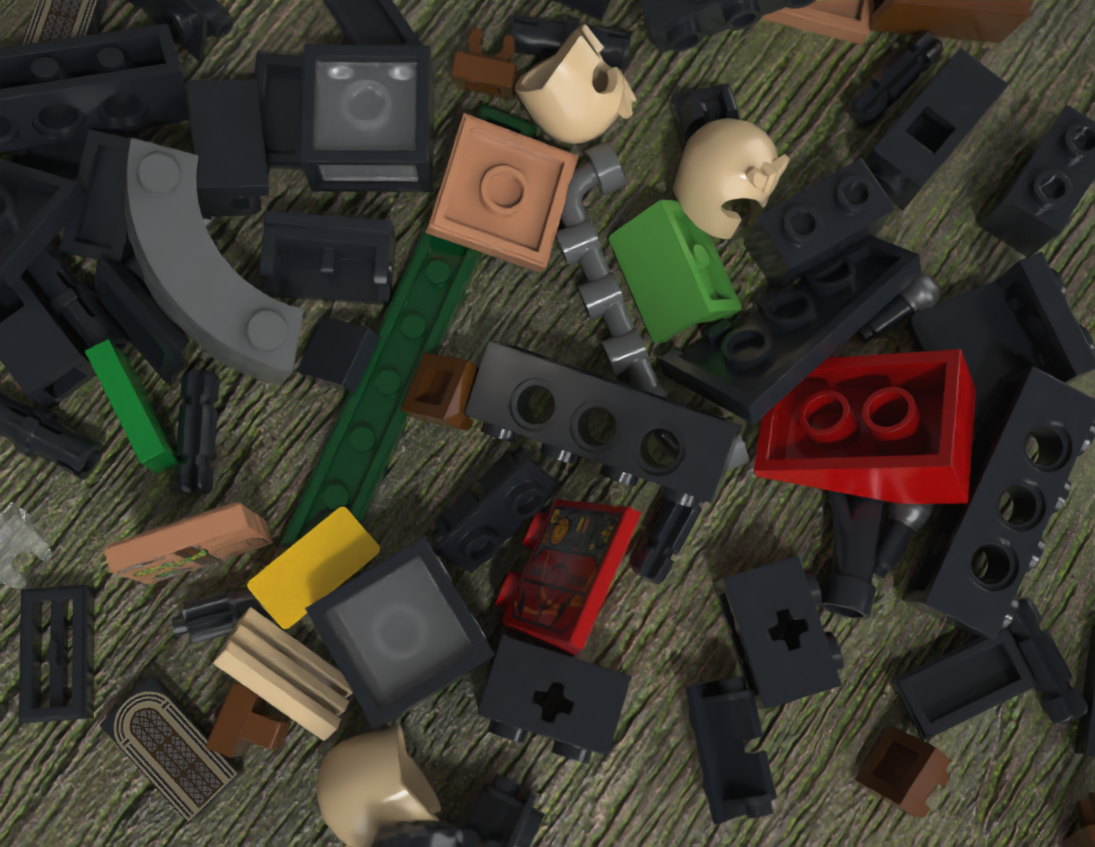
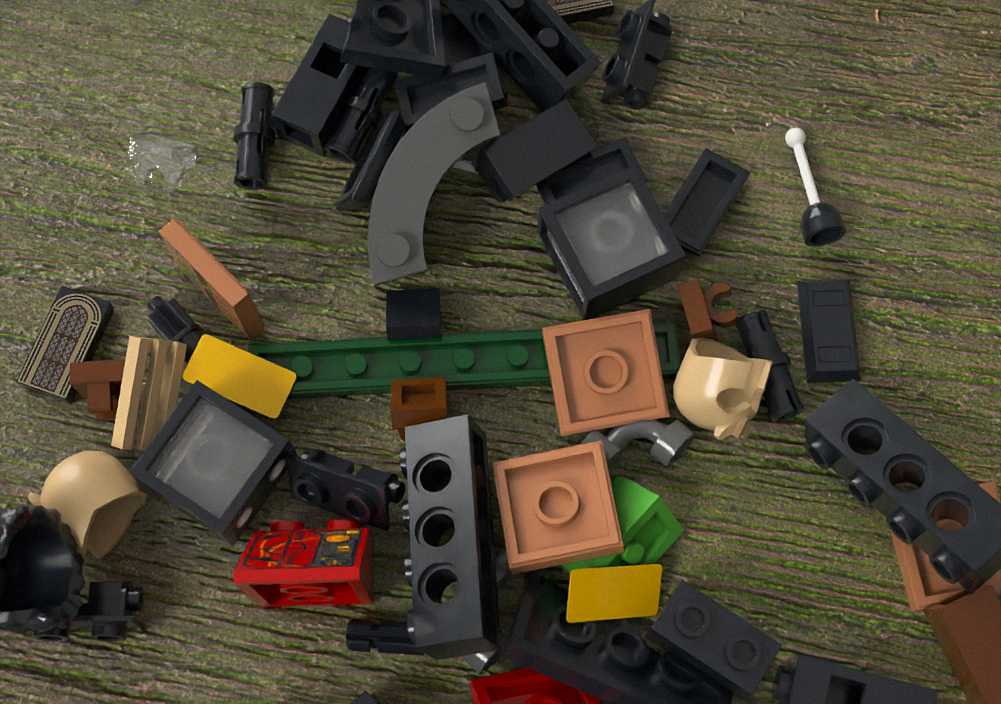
camera: 70 degrees right, 5 degrees down
(82, 654) = (75, 257): black tile -> none
(133, 407) = (301, 191): green tile -> none
(196, 432) = (306, 244): black axle -> none
(328, 258) = (486, 270): black hinge -> none
(594, 695) = (236, 628): black brick -> none
(623, 302) = (557, 507): none -> nougat tile
(698, 107) = (762, 508): black tile -> none
(722, 164) = (718, 537): tan helmet -> none
(730, 294) = (613, 592): none -> yellow sticker
(894, 78) = (891, 652): black axle -> none

